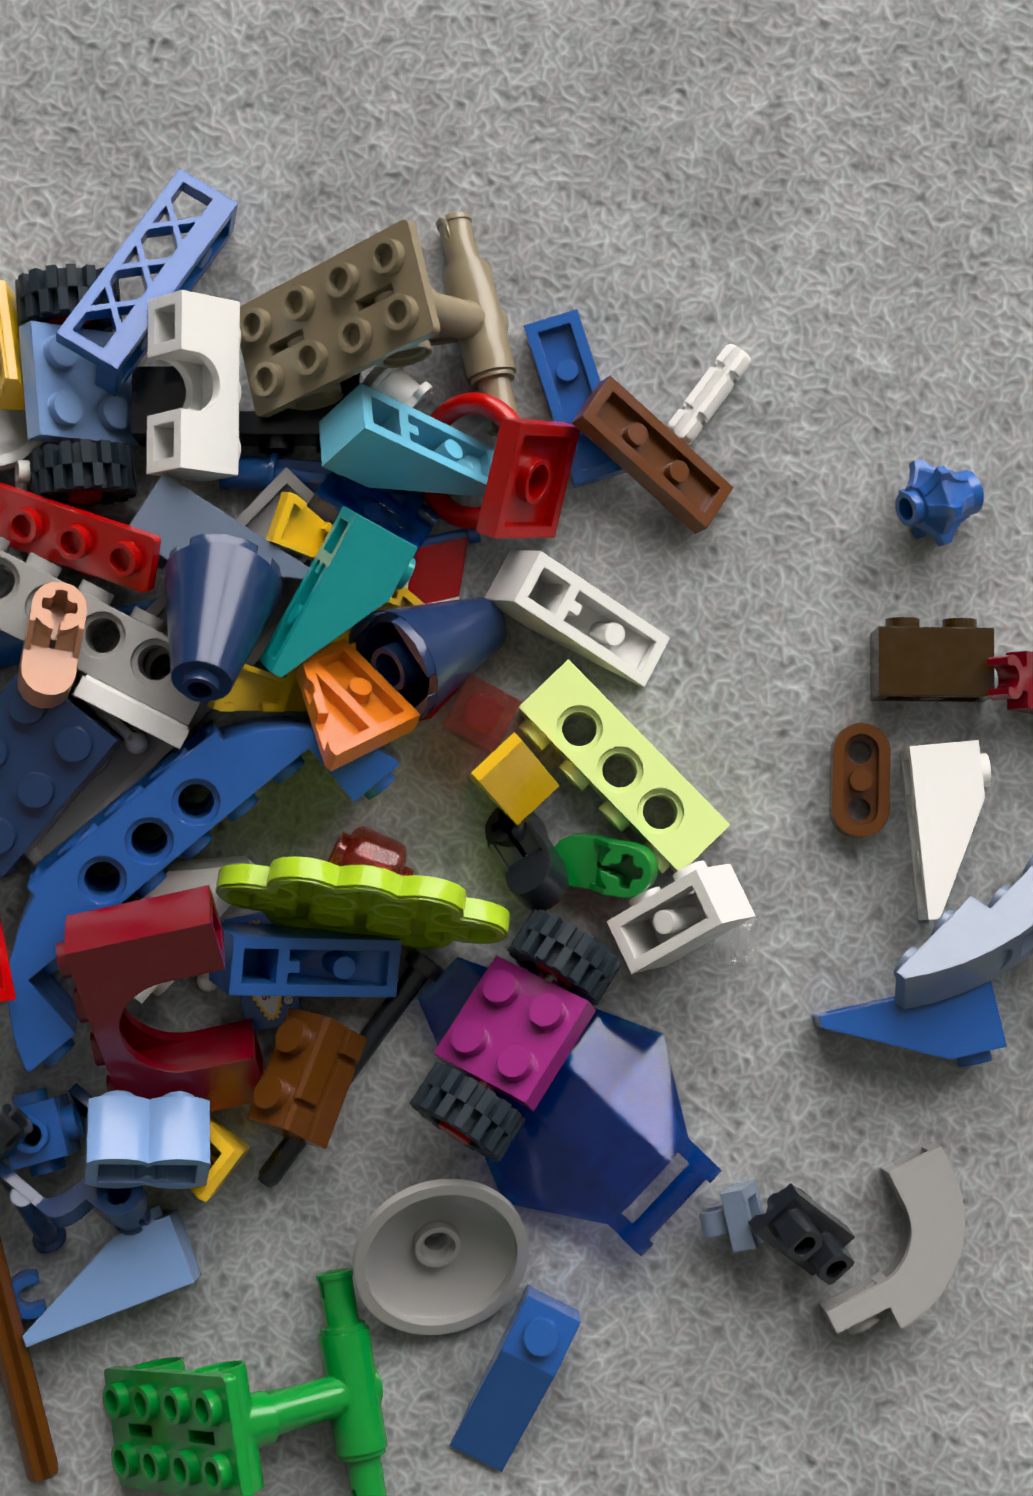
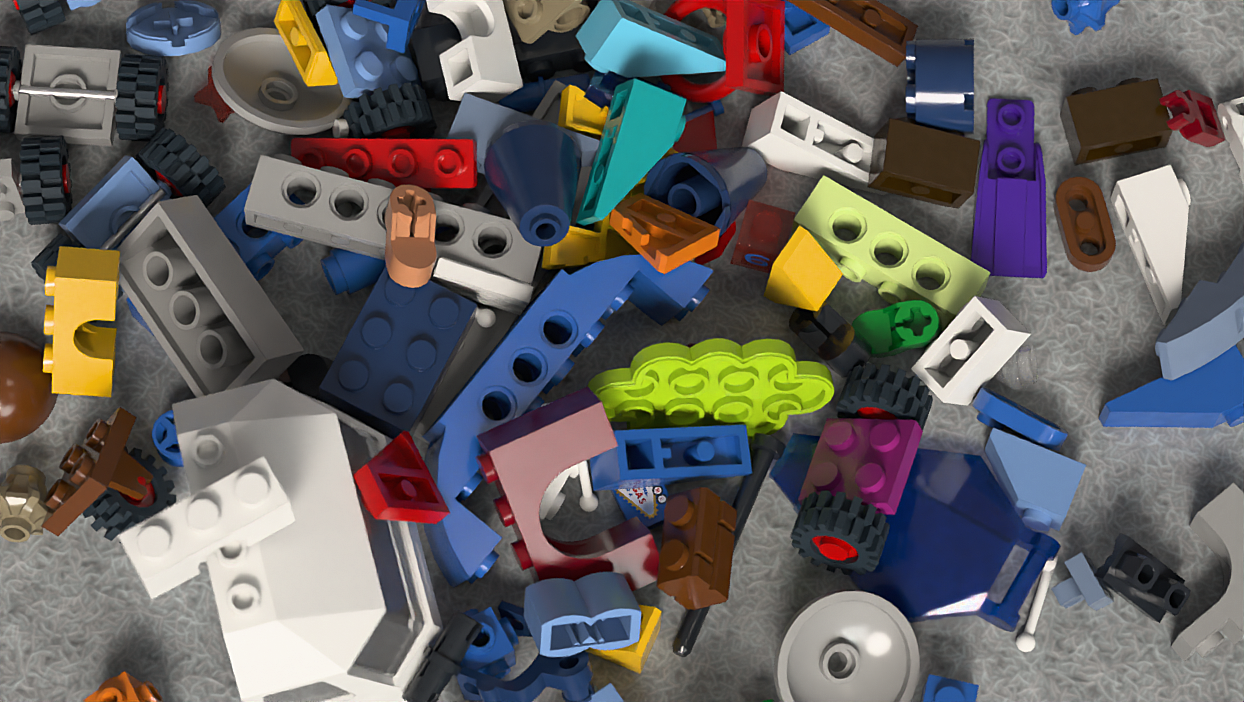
camera: 15 degrees left, 15 degrees down
(656, 1259) = (1026, 640): none -> white hinge
(692, 666) = (924, 163): none -> dark brown brick
(716, 1083) = (1034, 479): none -> medium blue slope
(729, 1013) = (1000, 411): none -> blue plate
(736, 578) = (941, 83): none -> dark blue brick
(784, 721) = (1010, 194): none -> dark purple piece

